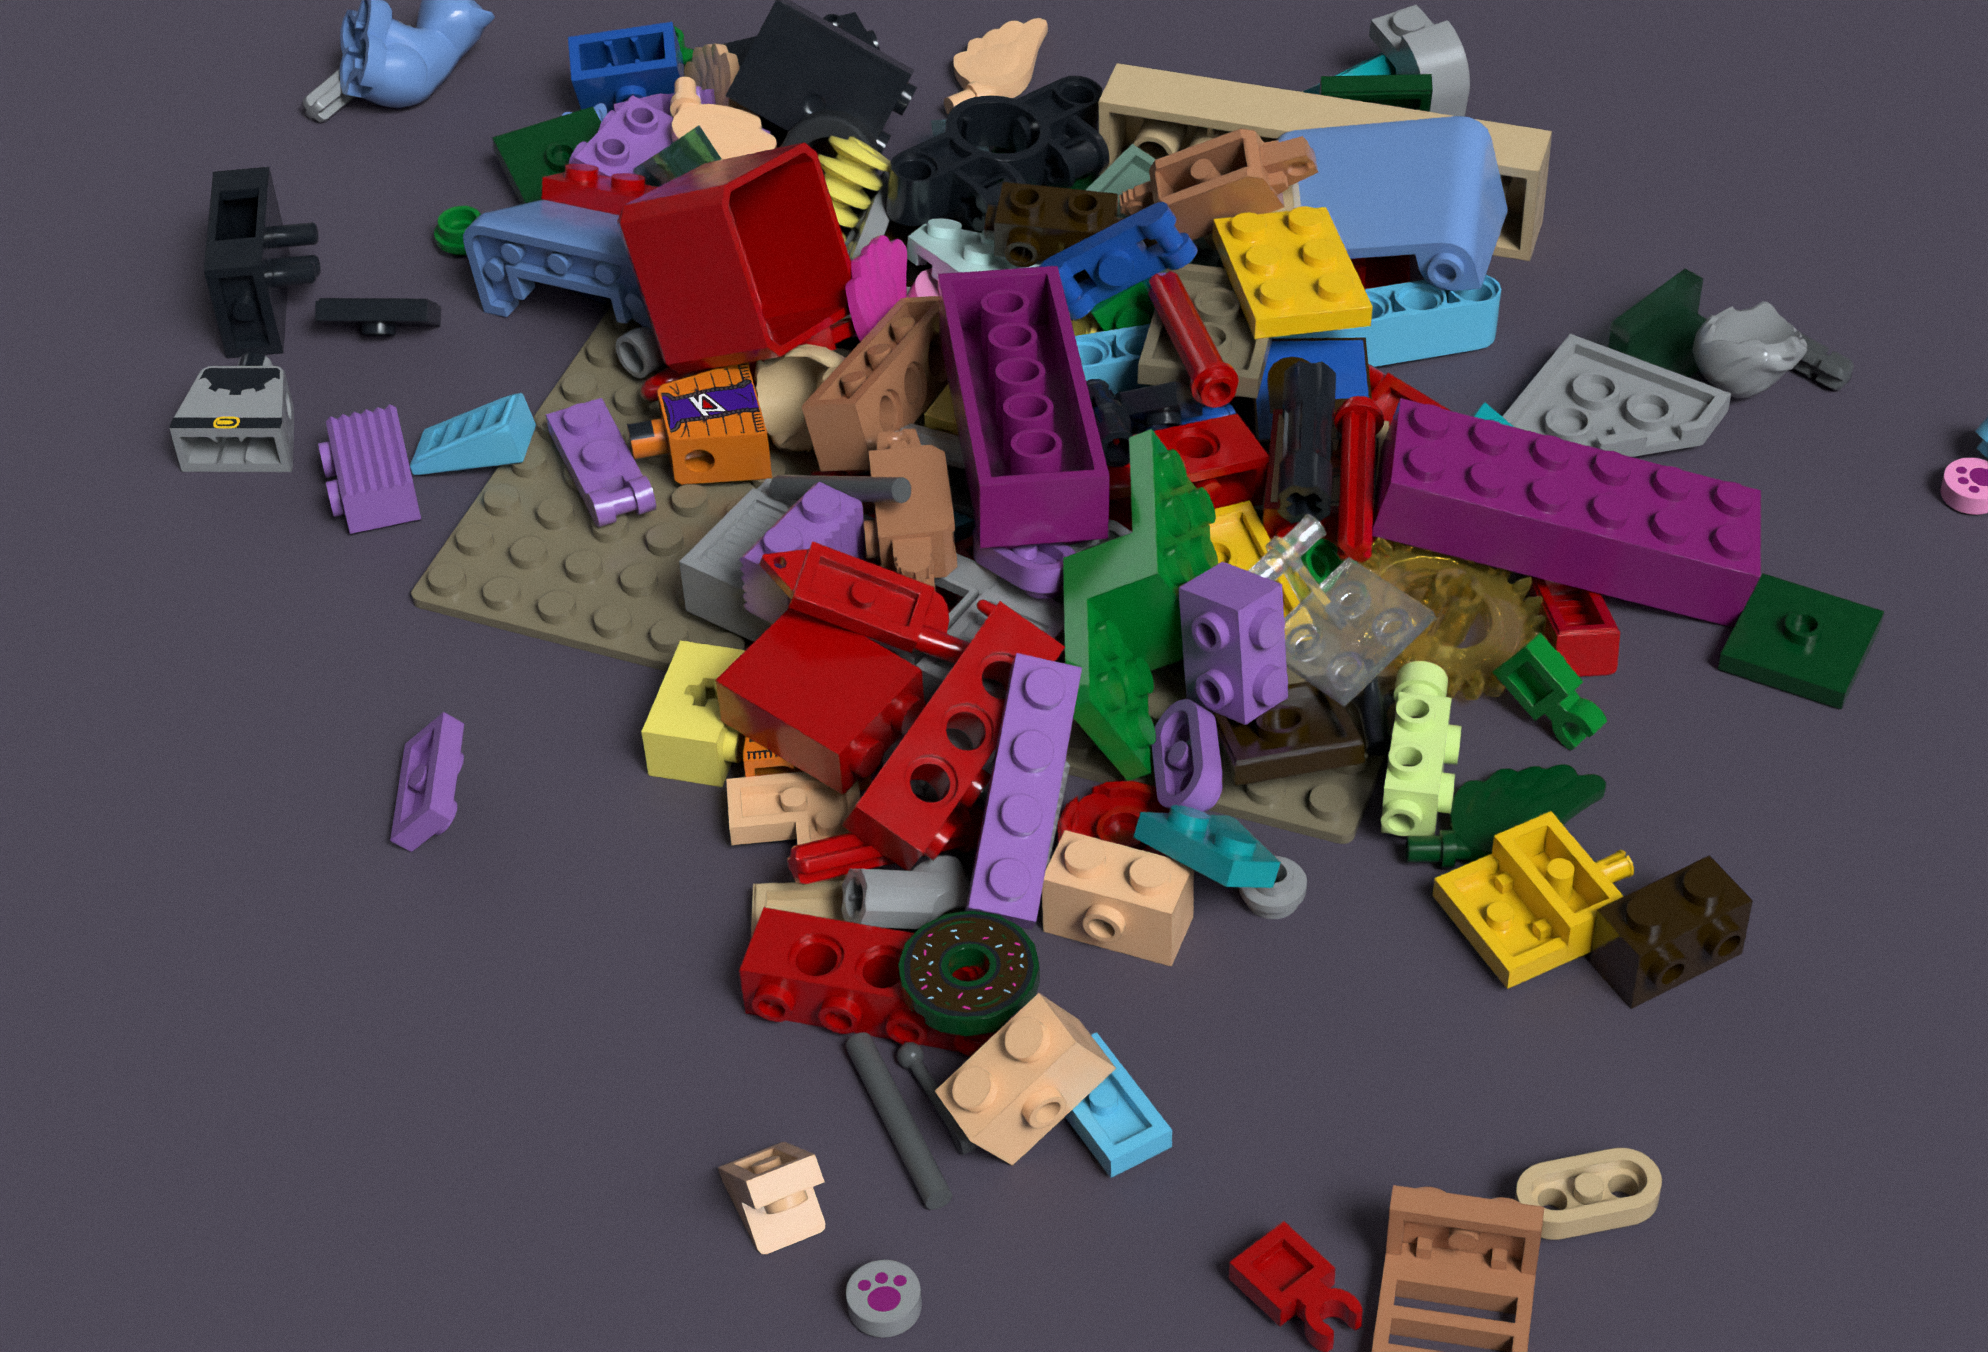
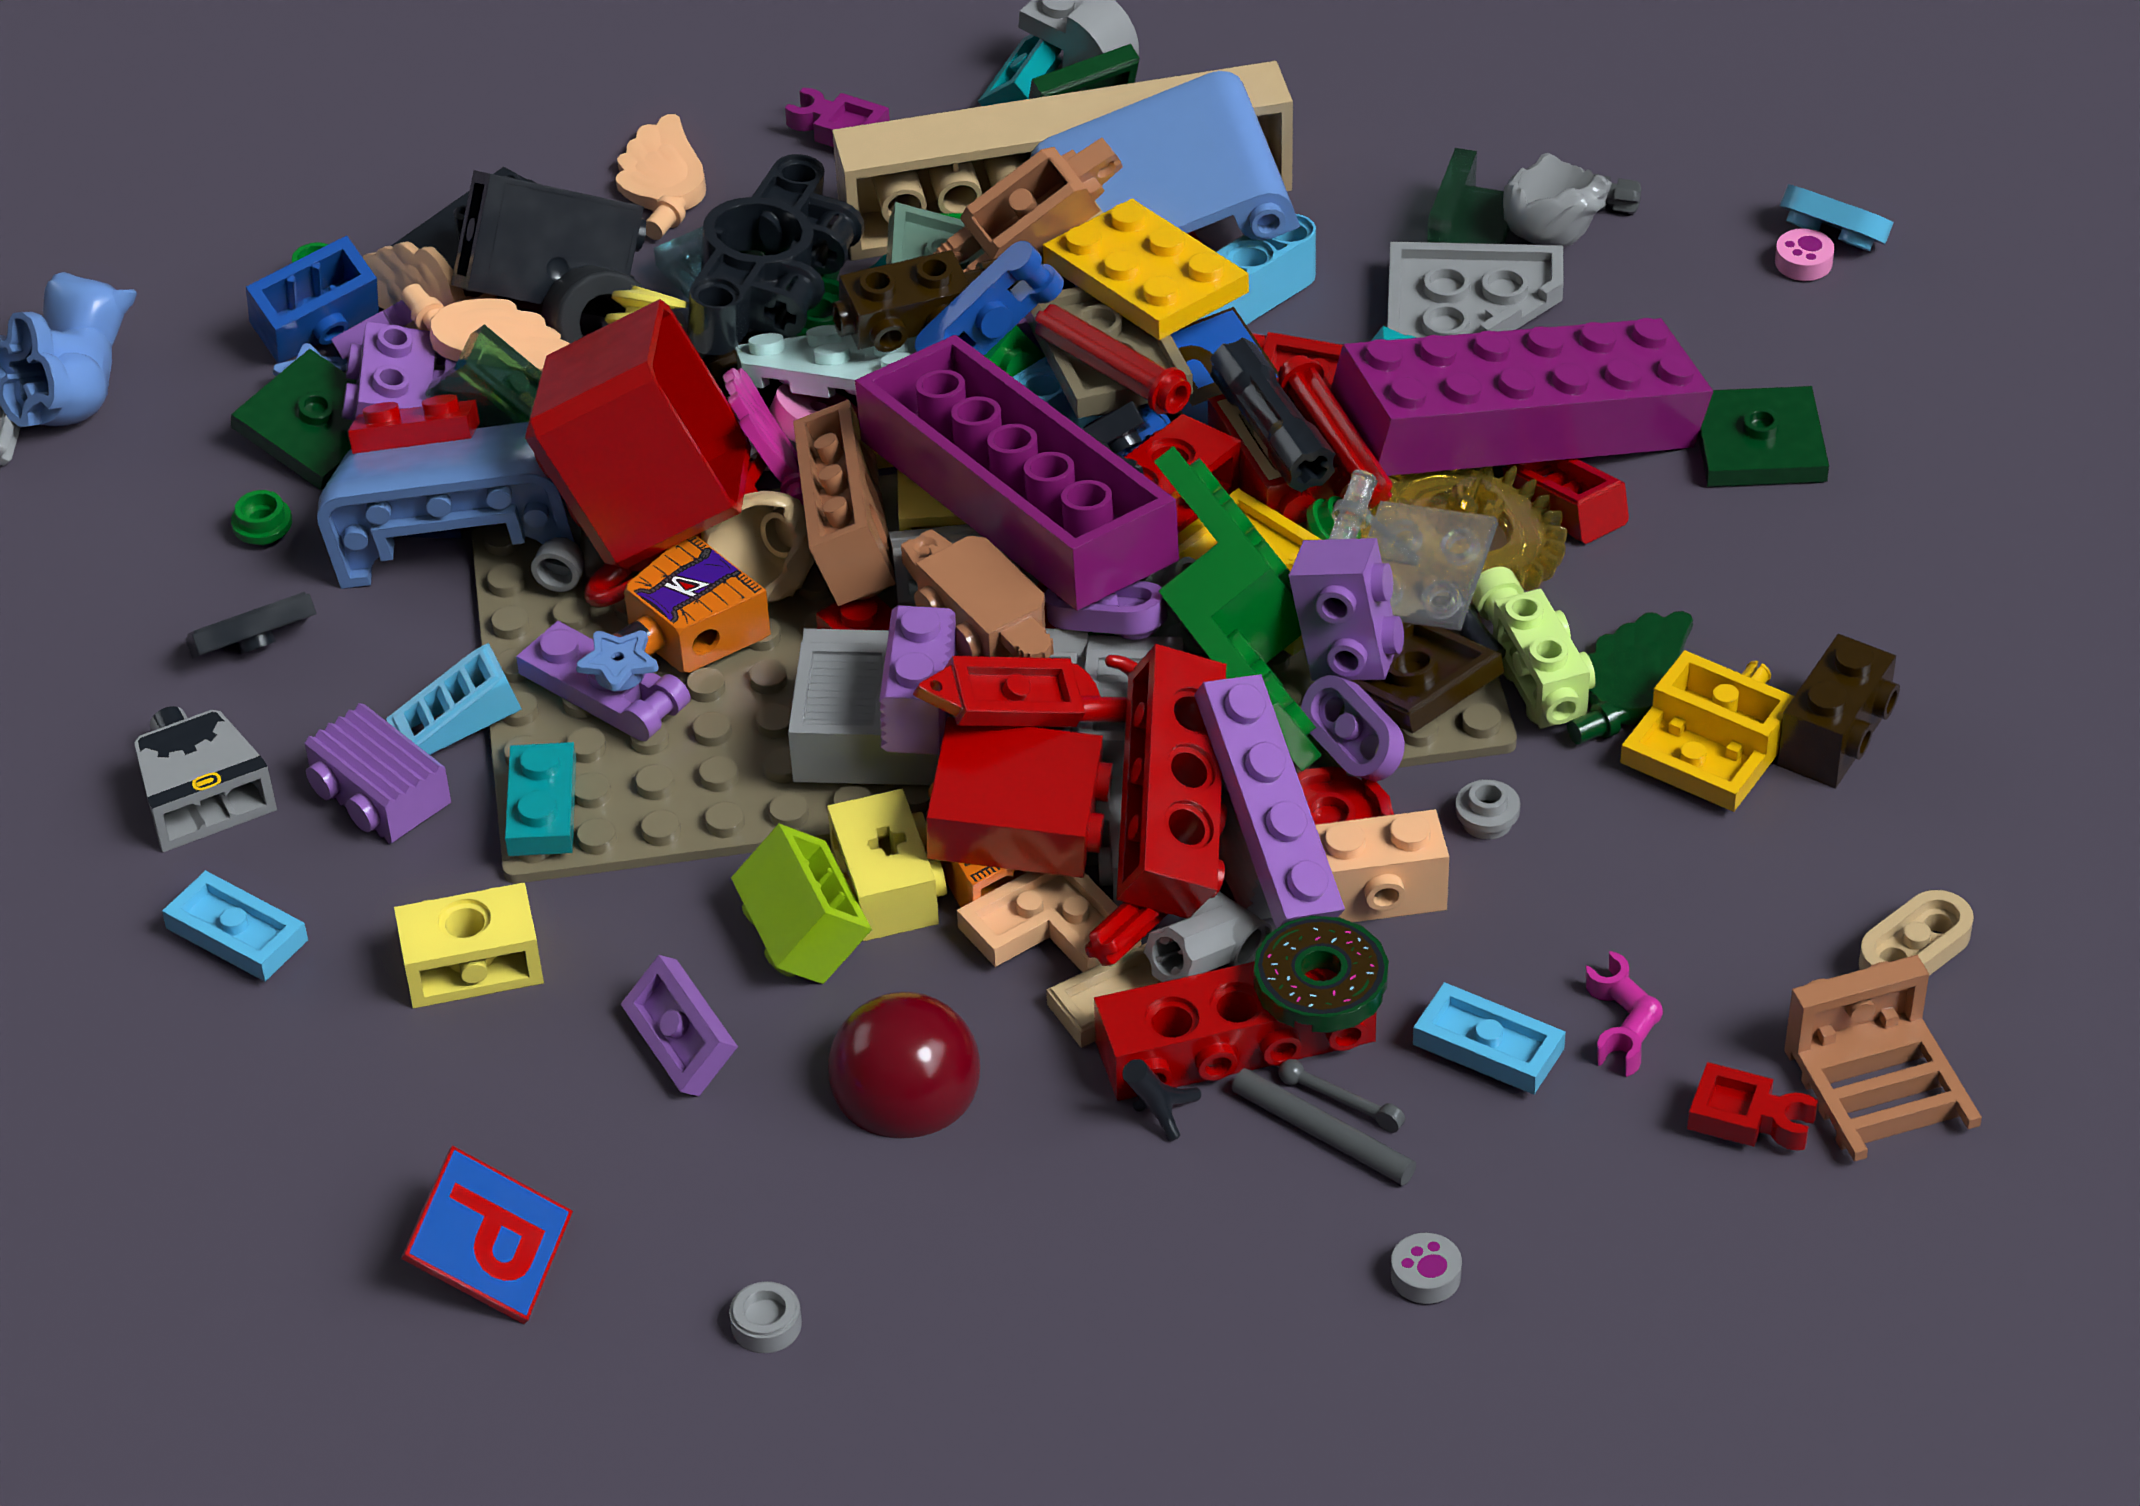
camera: 30 degrees left, 0 degrees up
(133, 894) = (487, 1235): none -> blue piece
(170, 551) = (235, 925): none -> medium azure plate
(251, 261) = (92, 621): black piece -> none
(301, 1071) = (765, 1317): none -> light grey tile
(323, 642) = (469, 945): none -> light yellow brick
(474, 542) = (540, 799): none -> teal plate
(581, 899) = (904, 1065): none -> dark red piece
(598, 718) = (800, 904): none -> lime brick
(605, 447) = (618, 674): none -> medium blue plate
(763, 1022) = (1157, 1095): none -> black bar
(776, 1195) = (1275, 1223): light nougat slope -> none
(860, 487) = (941, 596): dark grey bar -> none
(1025, 1079) = (1430, 1039): light nougat brick -> none
(1165, 58) = (825, 115): none -> magenta plate
(1210, 845) = (1437, 789): teal wing -> none
(1272, 1146) = (1642, 1009): none -> dark pink arm
(1547, 685) = (1600, 548): green plate -> none

